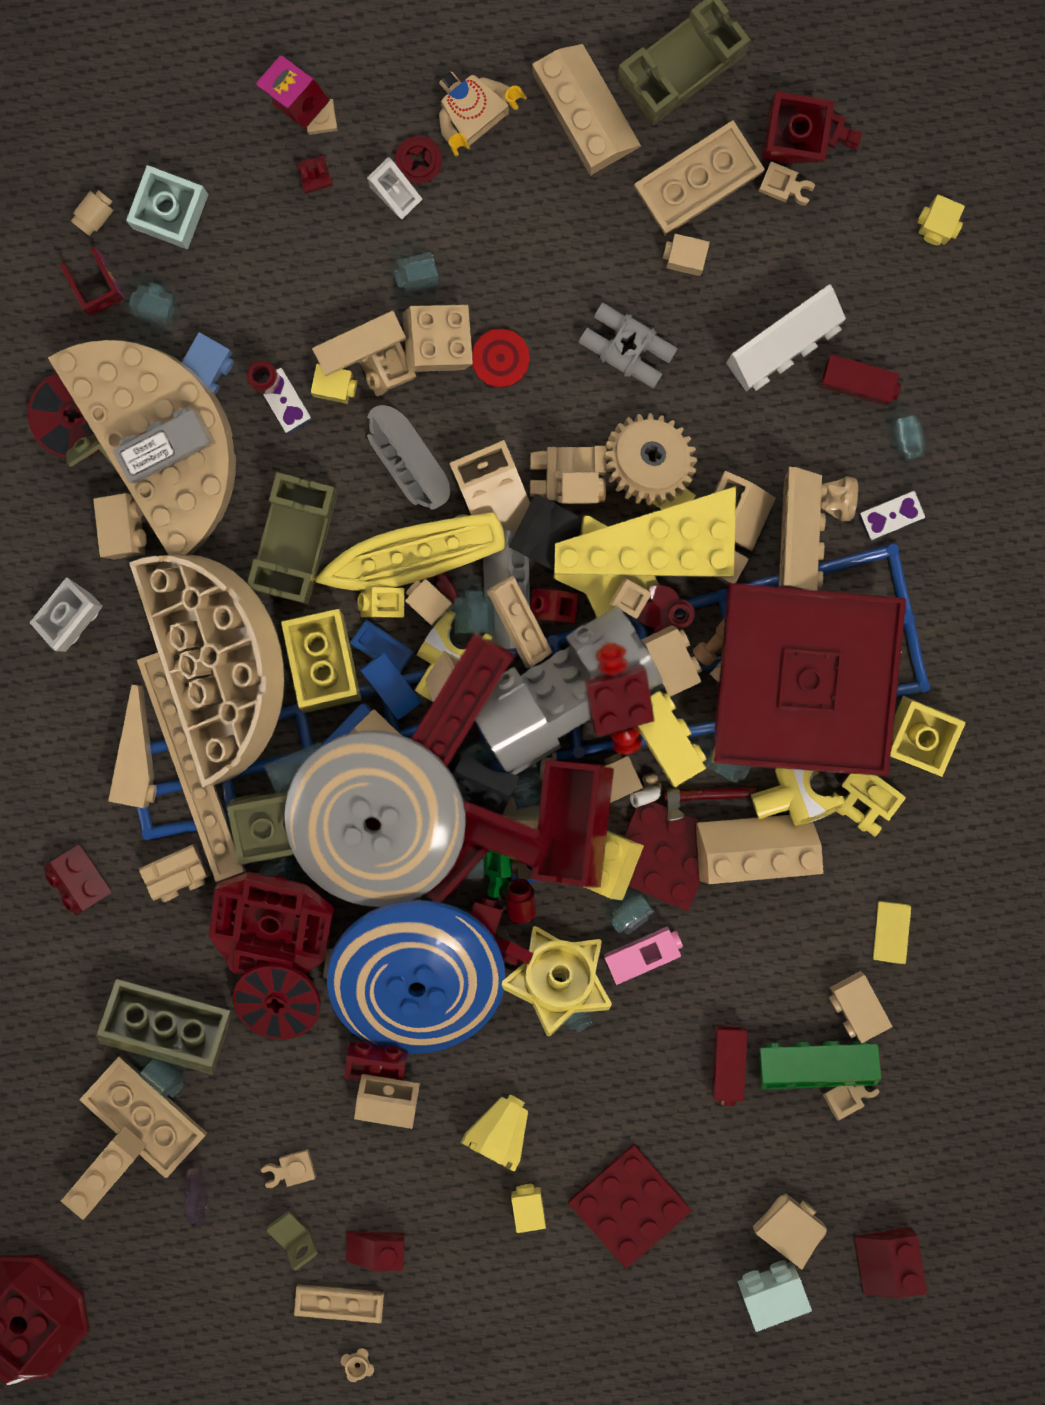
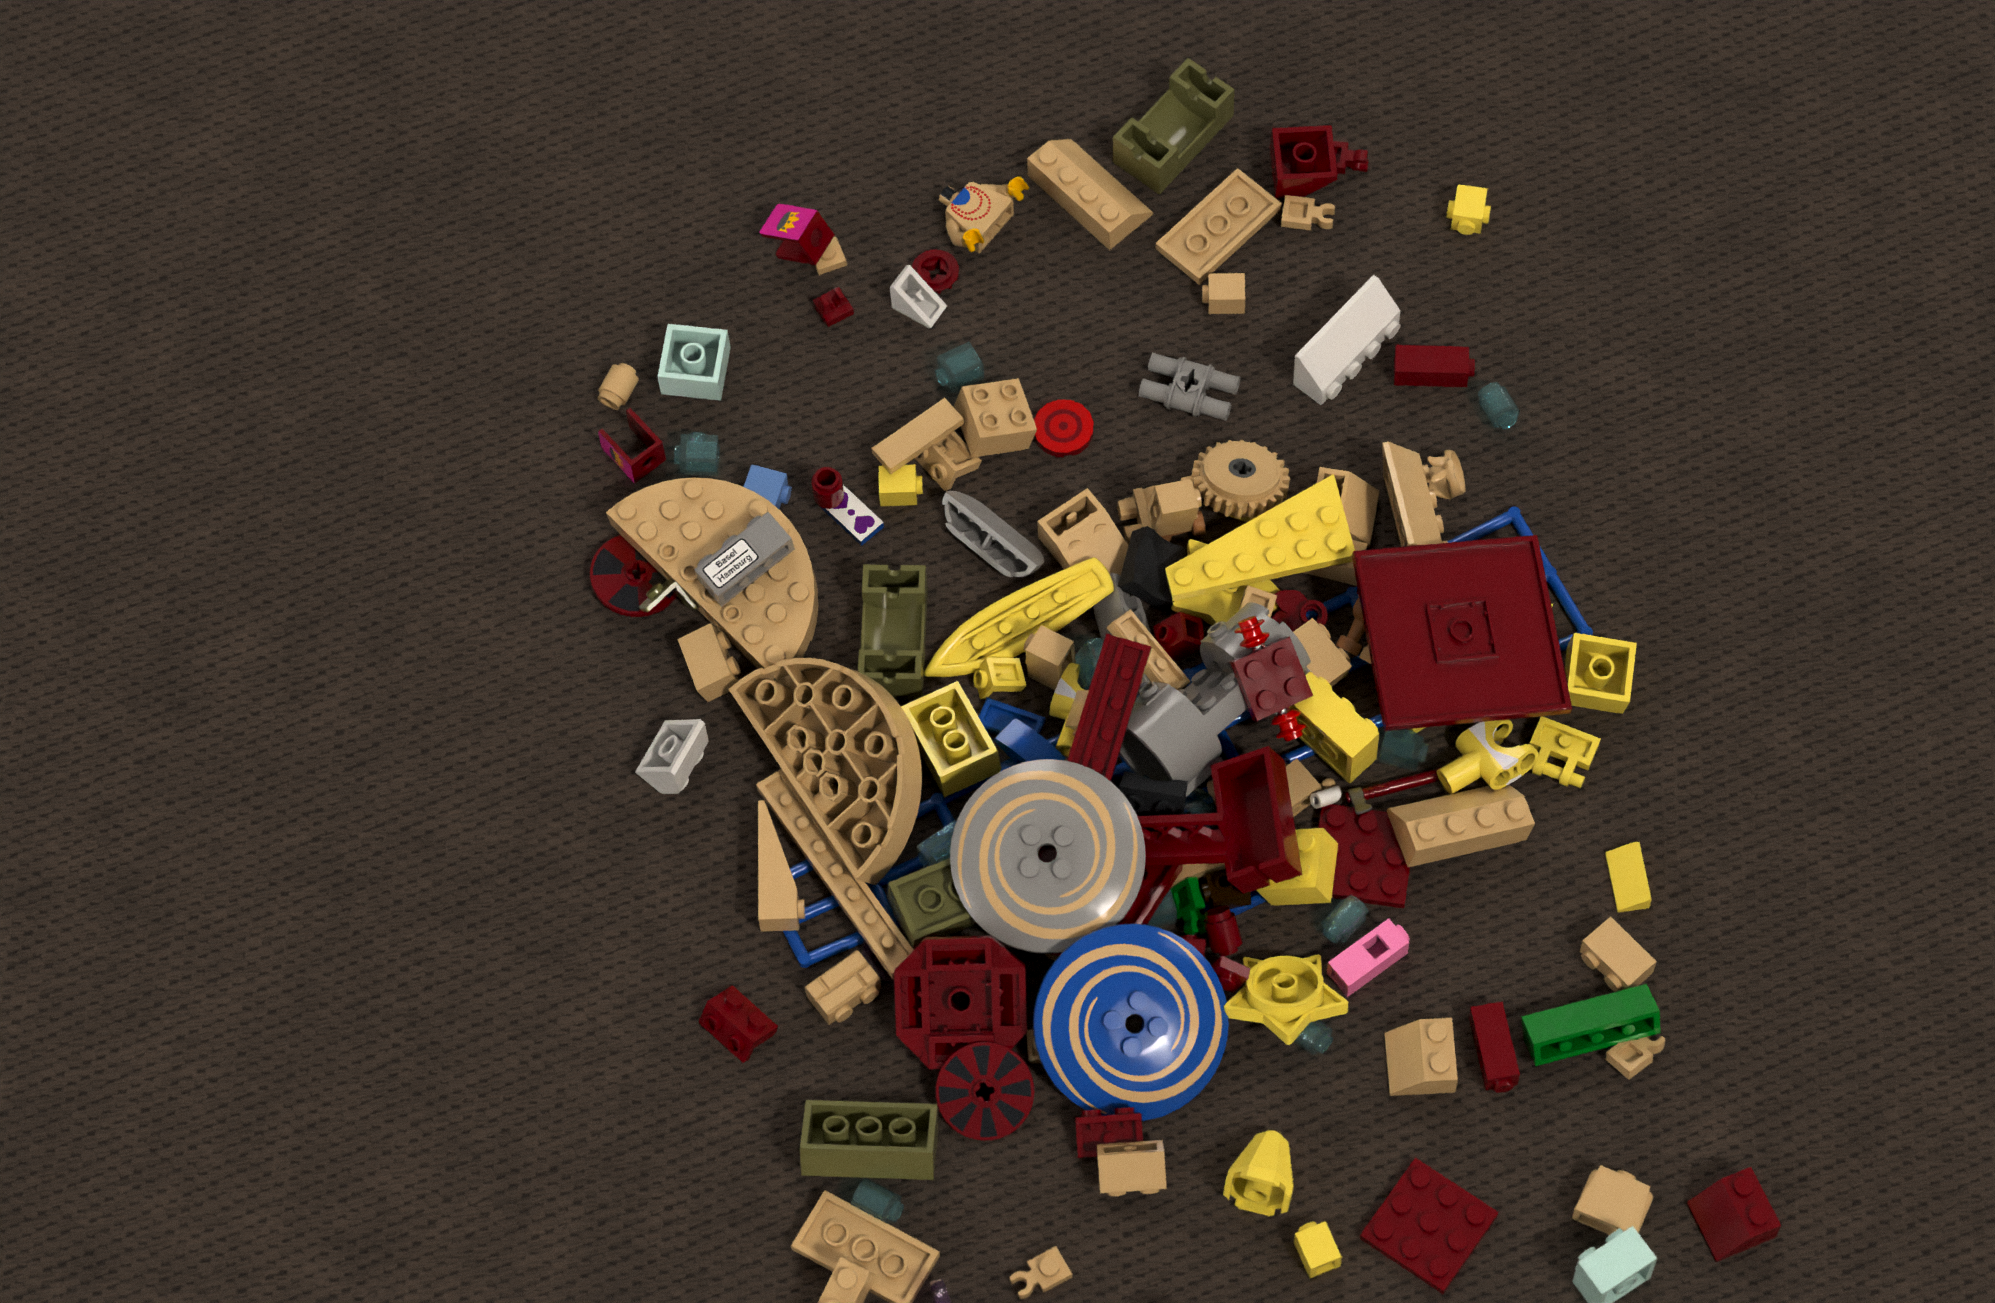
camera: 10 degrees left, 25 degrees down
(663, 1059) = (1421, 1058): none -> tan slope
(891, 515) = (1503, 483): white tile -> none

